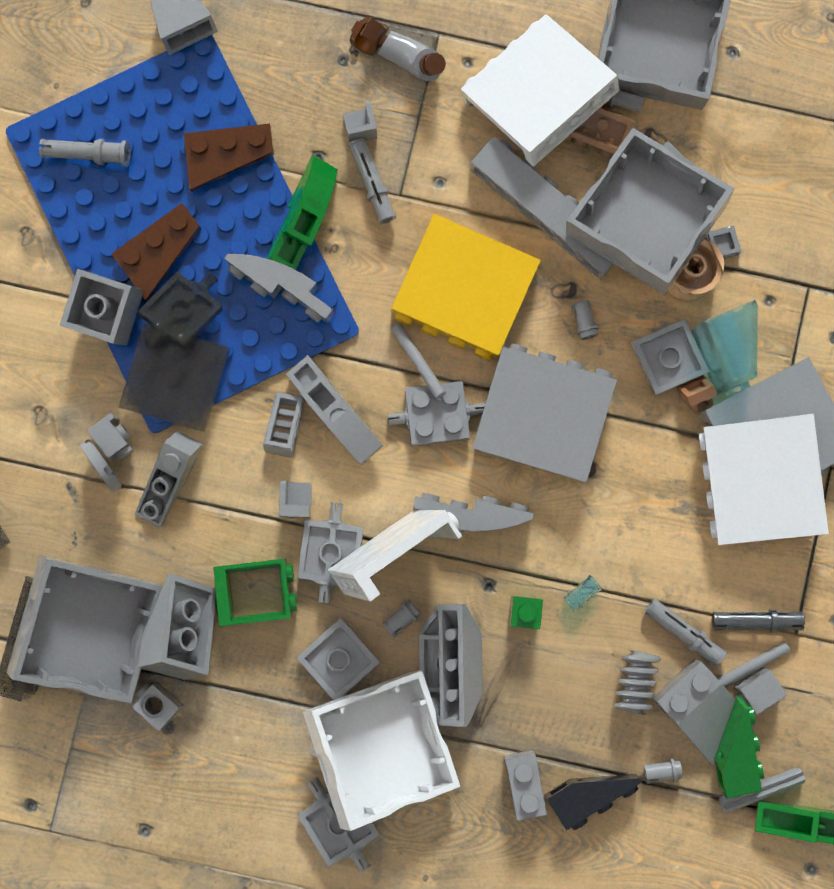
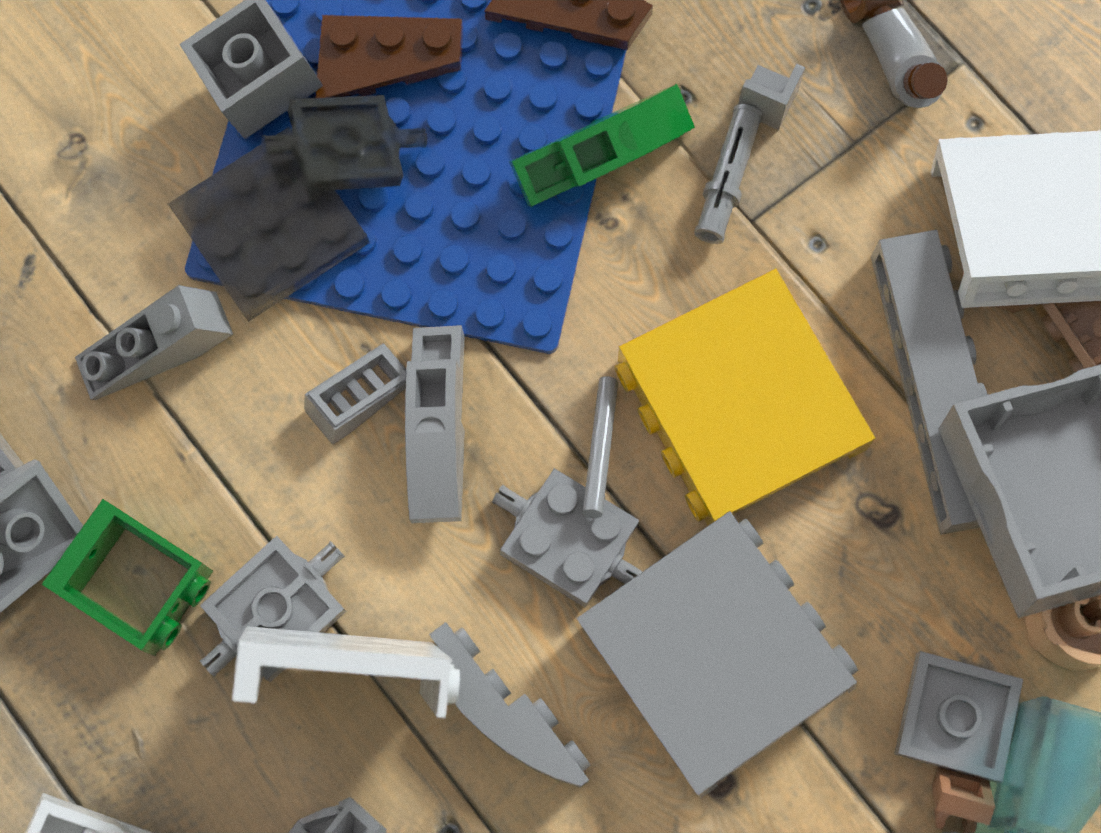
camera: 45 degrees right, 10 degrees down
(100, 465) = (77, 263): light grey tile -> none
(111, 438) = (128, 236): light grey brick -> none
(271, 277) = (503, 201): light grey slope -> none
(295, 499) = (287, 499): light grey panel -> none
(338, 659) = (159, 763): light grey plate -> none
(402, 618) = (291, 779): light grey pin -> none
(585, 320) = (875, 571): light grey pin -> none

